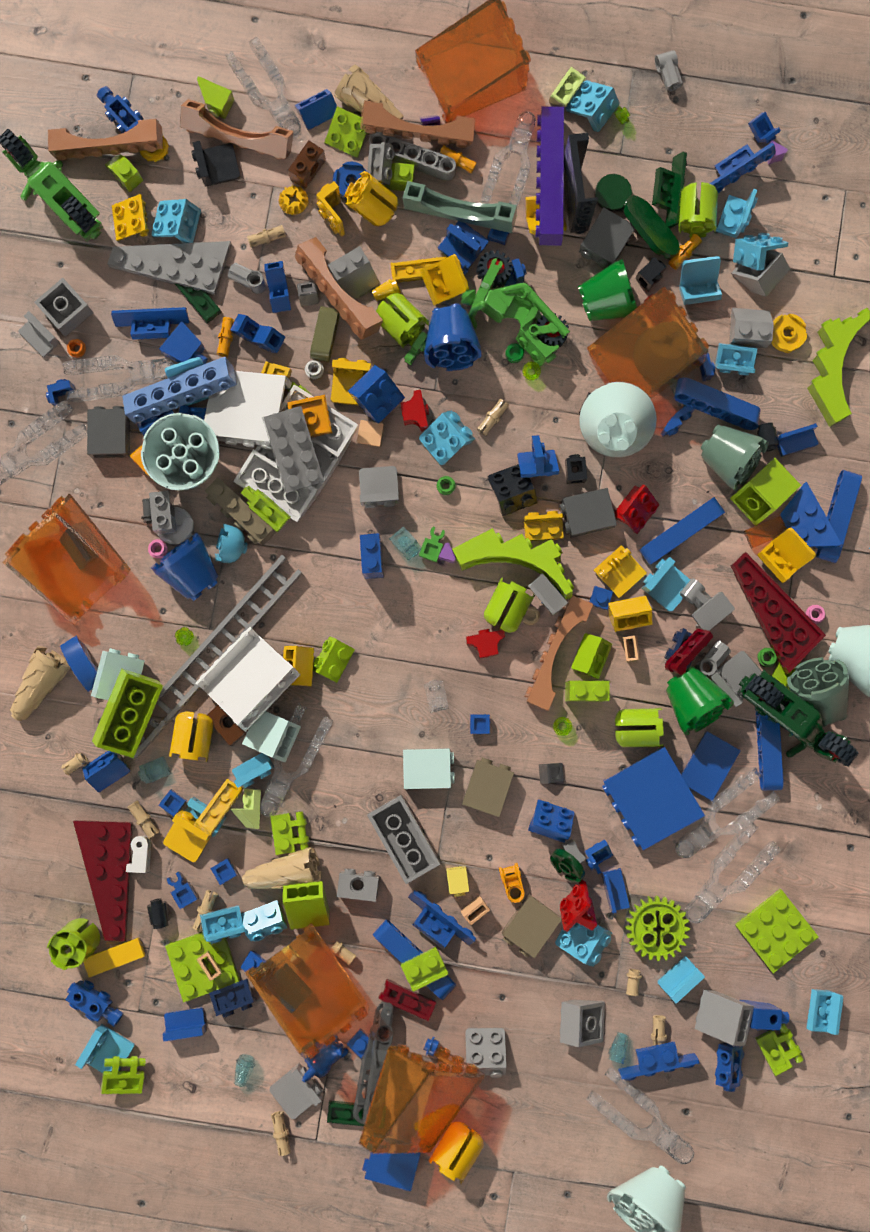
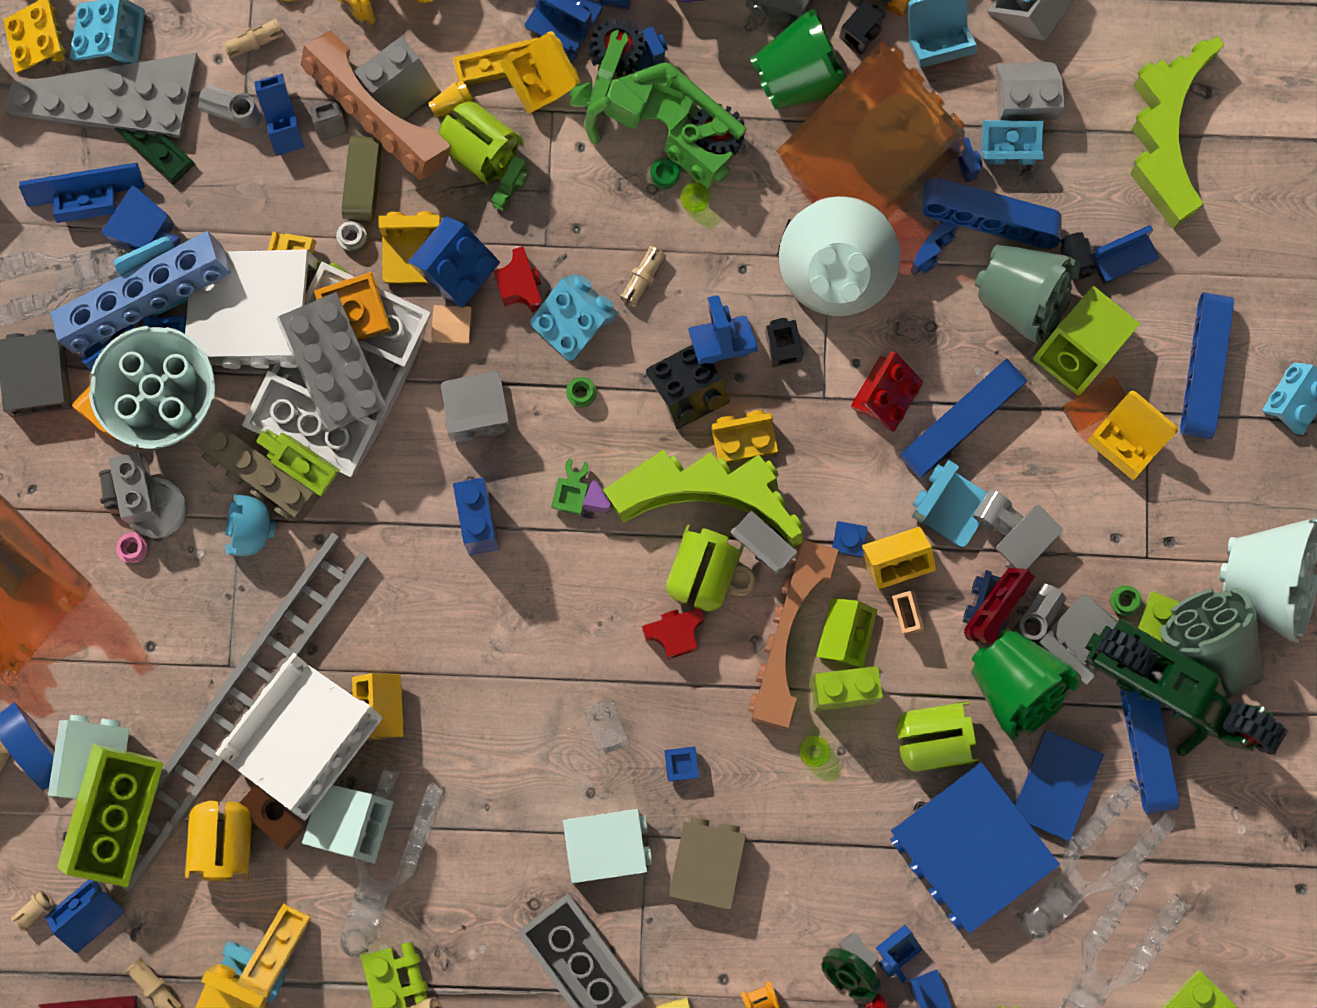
camera: 10 degrees left, 5 degrees down
(154, 770) = (163, 905): clear light blue bracket -> none
(172, 802) = (198, 954): blue plate -> none
(179, 636) = (181, 679): clear neon green plate -> none
(188, 568) = (184, 572): blue cone -> none
(225, 337) = (204, 201): light orange pin -> none
(251, 769) = (322, 883): medium azure bracket -> none
(251, 812) = (327, 956): yellowish green slope -> none
(259, 335) = (258, 193): blue brick -> none
(333, 659) = (433, 689): lime bracket -> none
(406, 543) = (528, 491): clear light blue bracket -> none
(451, 339) = (562, 163): blue cone -> none
(551, 773) = (806, 829): flat silver slope -> none
(552, 821) = (816, 906): blue bracket -> none
(588, 513) = (811, 407): dark grey brick -> none
(620, 571) = (874, 493): yellow hinge -> none
(782, 620) = (1143, 541): dark red wing -> none
(798, 333) = (1103, 86): yellow plate -> none
(809, 520) = (1161, 376): blue wing -> none
(820, 611) = (1200, 520): bright pink plate -> none

